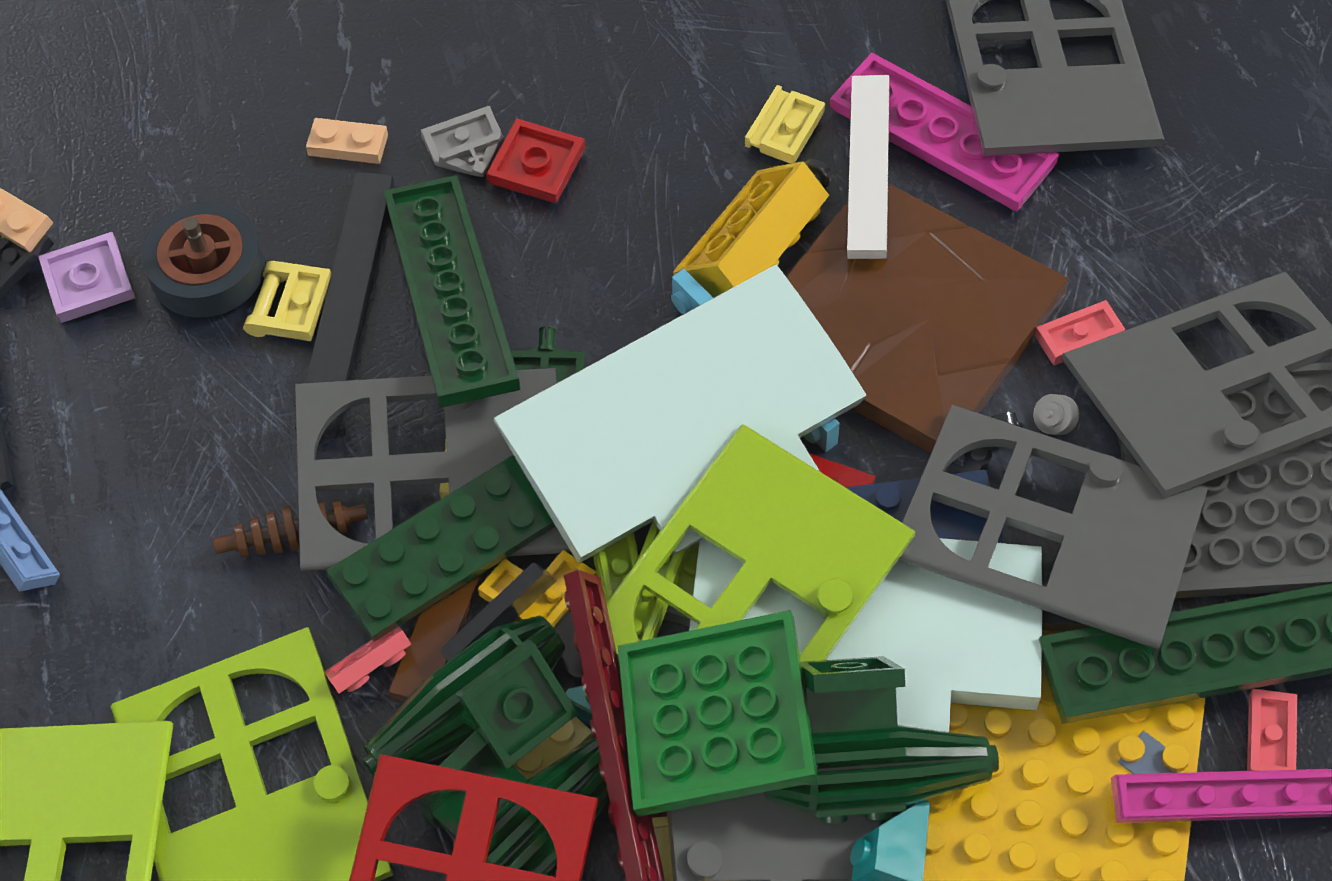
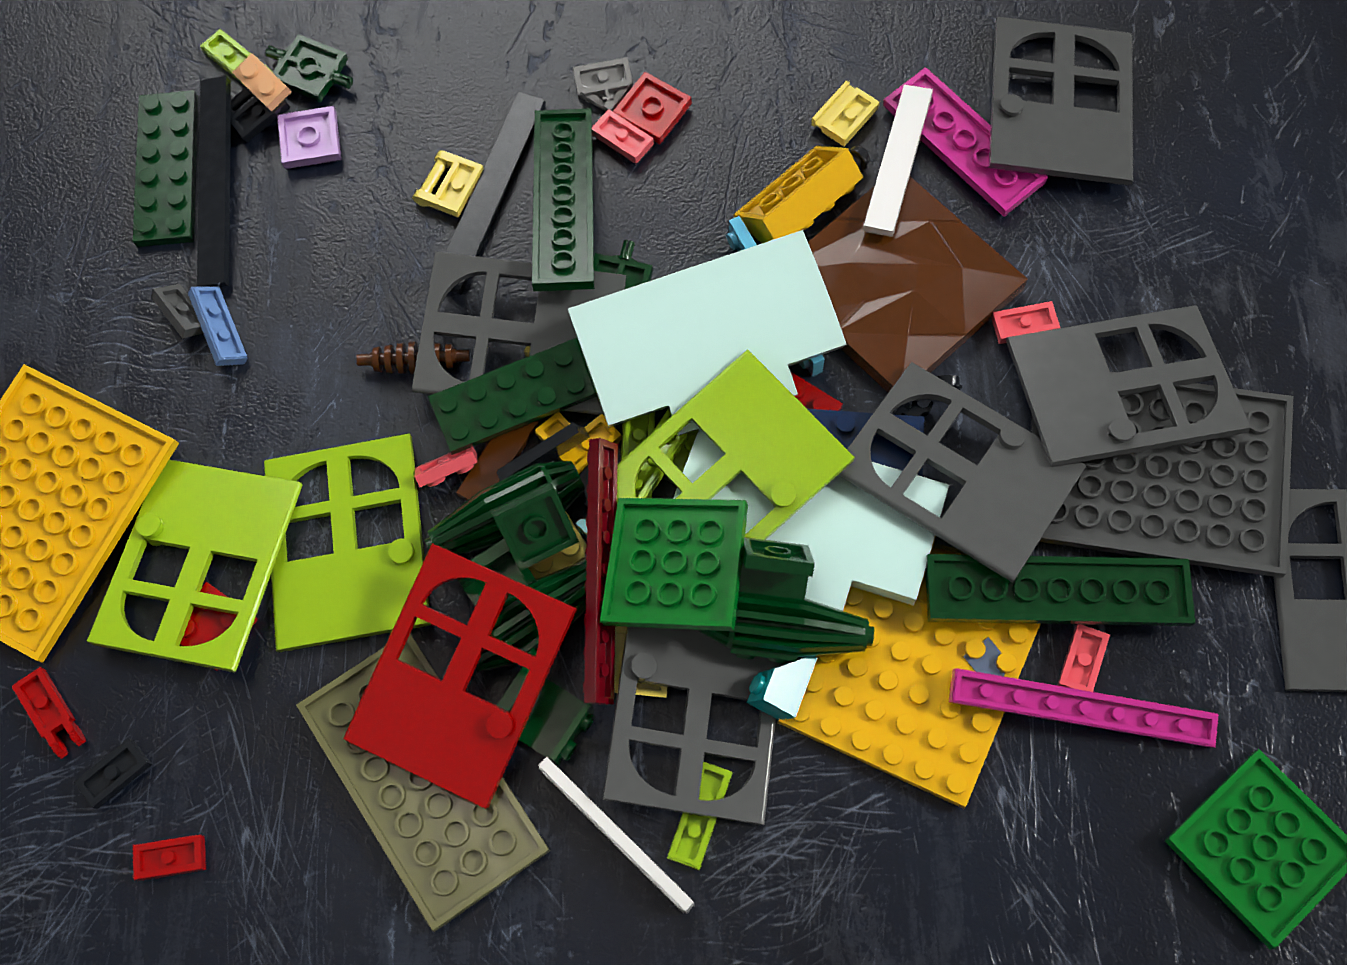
camera: 15 degrees right, 10 degrees up
(70, 189) = (310, 67): none -> plate
(203, 260) = (393, 140): wheel -> none
(347, 140) = (518, 65): light nougat plate -> none
(506, 202) = (622, 136): none -> coral plate
(1056, 414) = (989, 383): light grey wheel -> none

